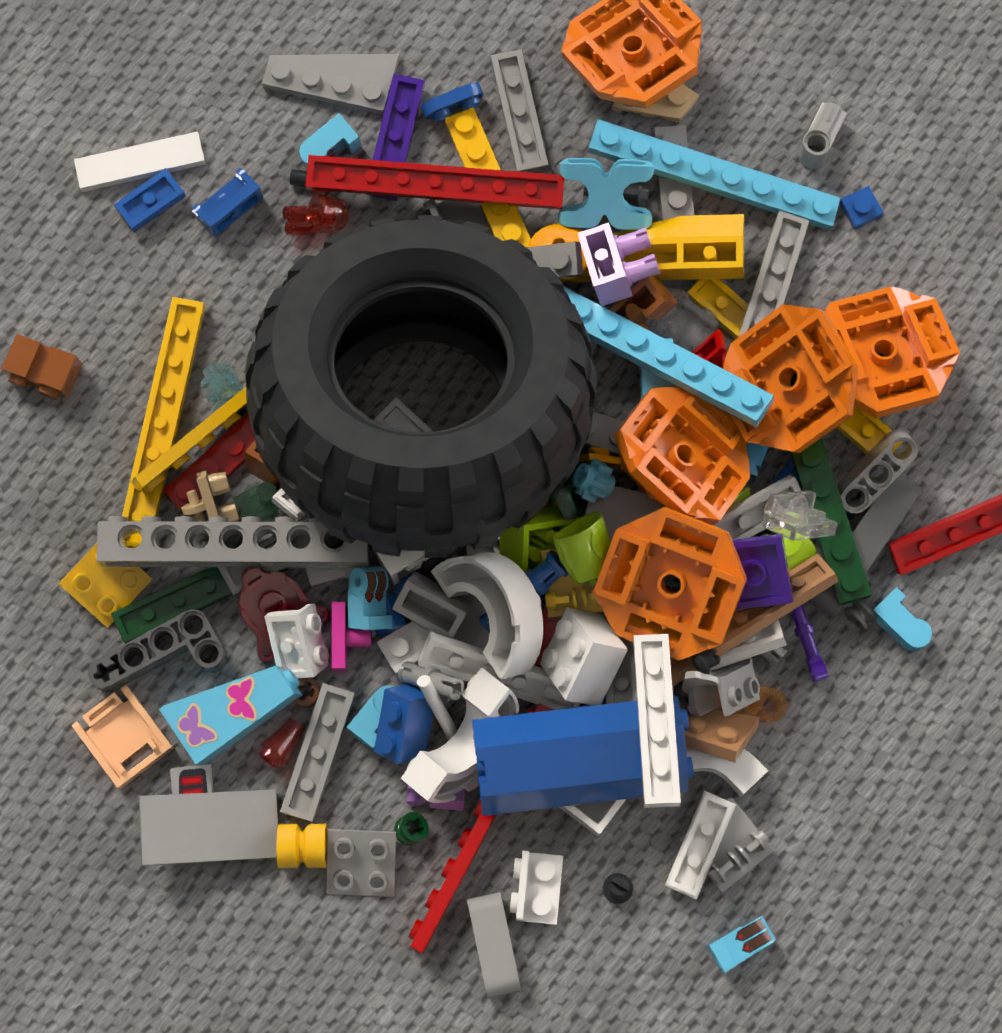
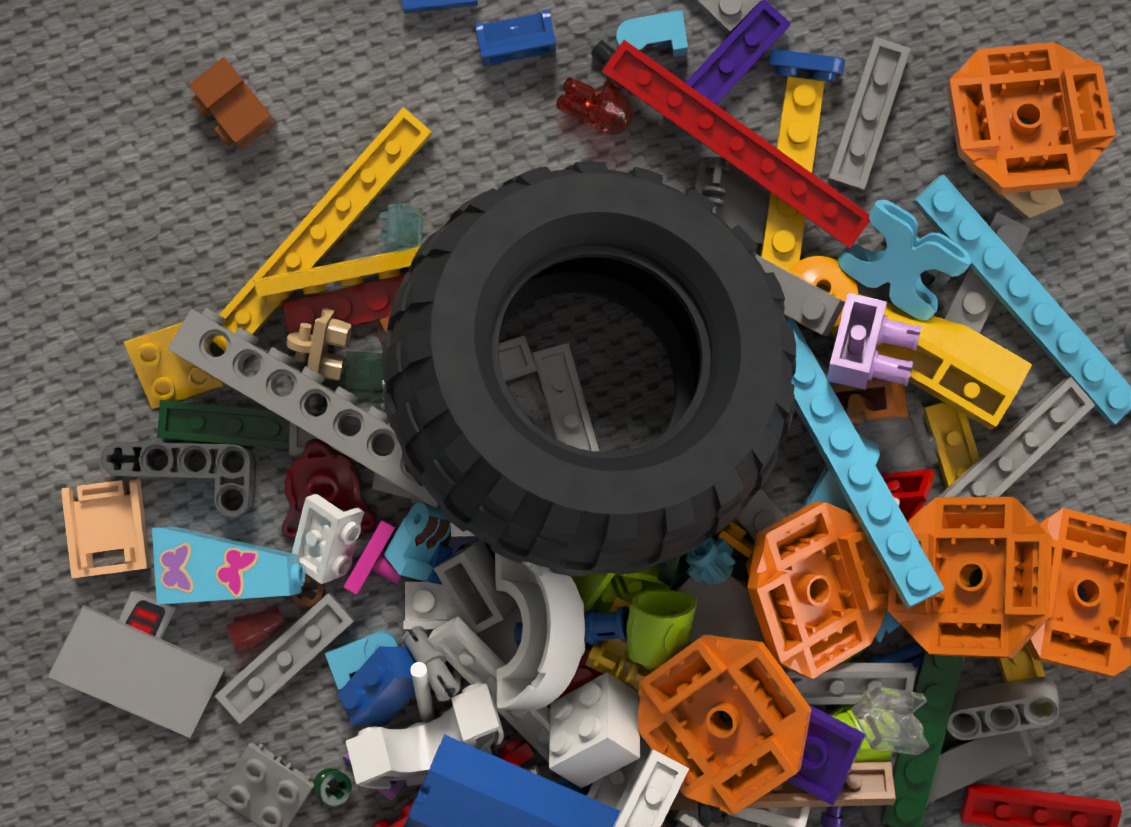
camera: 25 degrees right, 10 degrees up
(301, 846) = (216, 742): yellow wheel -> none

